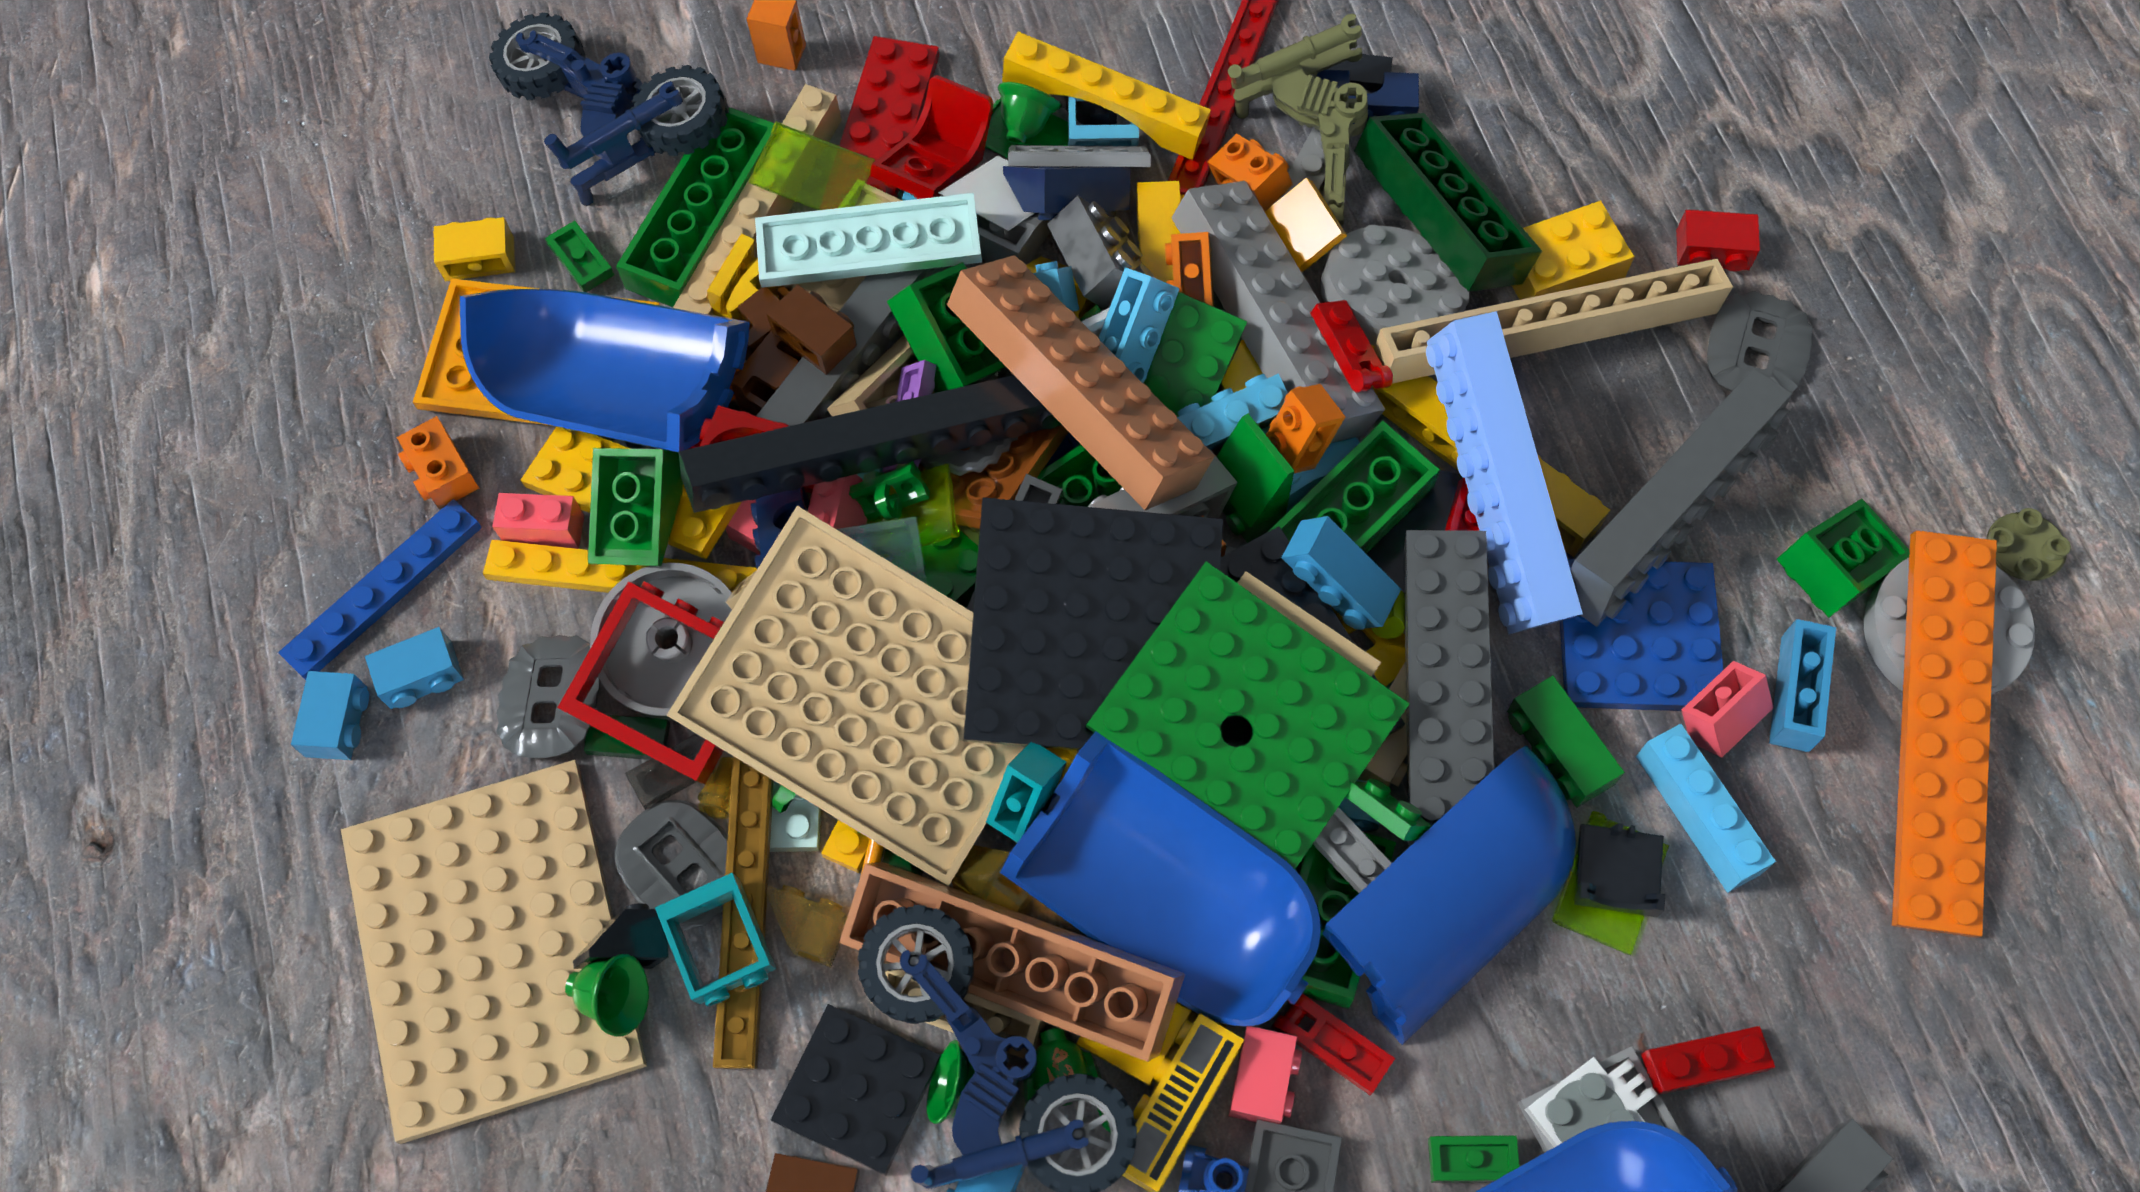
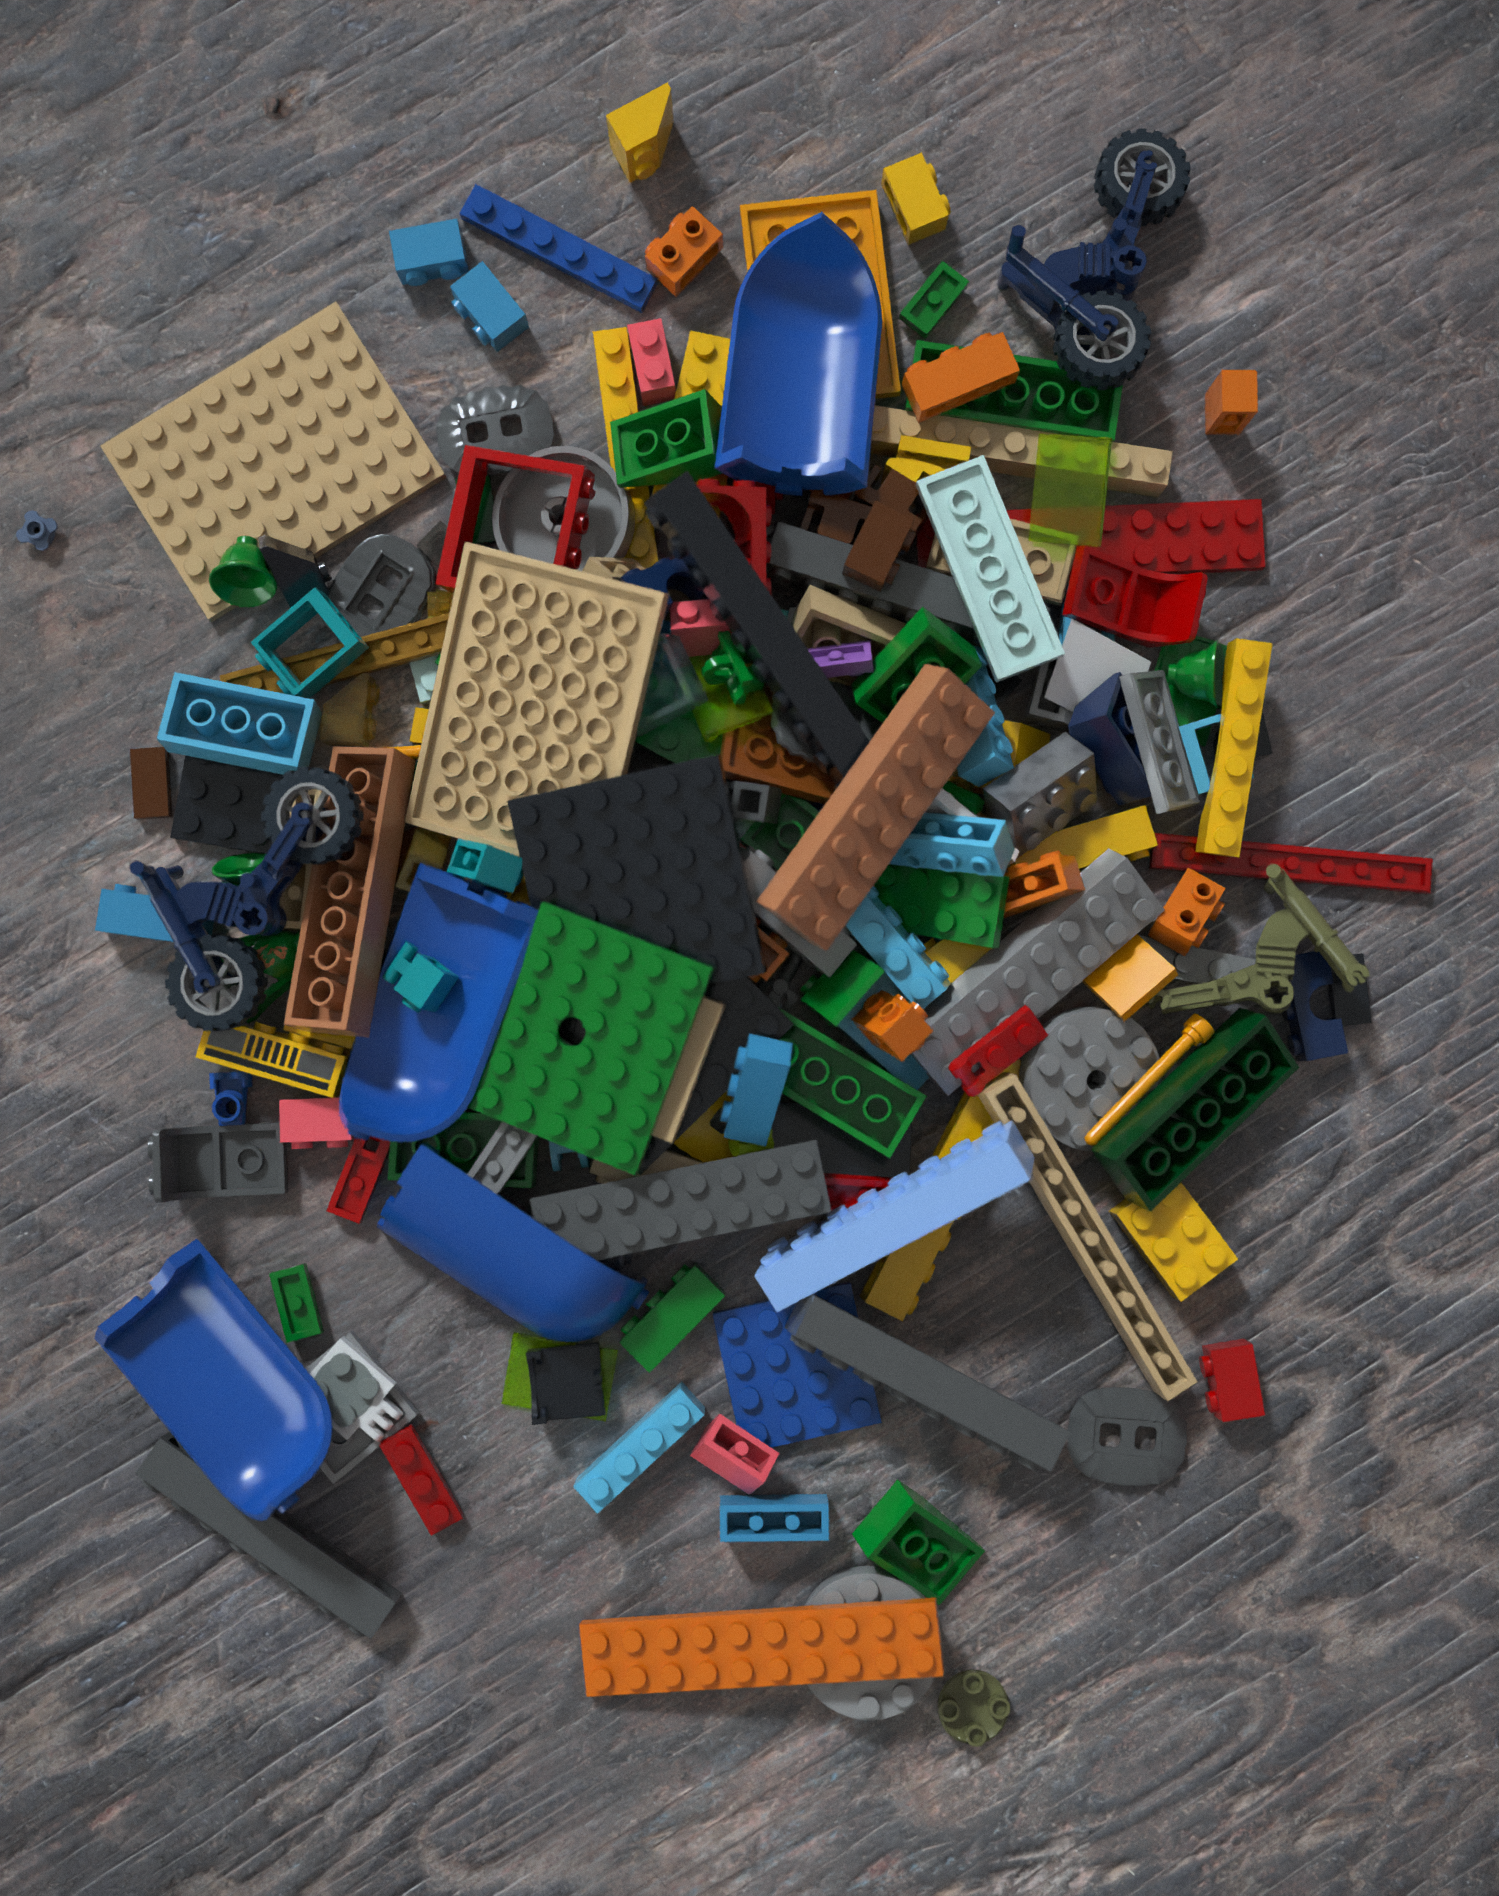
camera: 70 degrees right, 20 degrees up
(301, 471) = (641, 132): none -> yellow slope
(667, 230) = (960, 376): none -> orange brick
(782, 1041) = (239, 724): none -> medium azure brick
(1136, 895) = (423, 981): none -> teal brick
(1369, 188) = (1195, 1031): none -> light orange piece
(1395, 815) = (537, 1175): green plate -> none

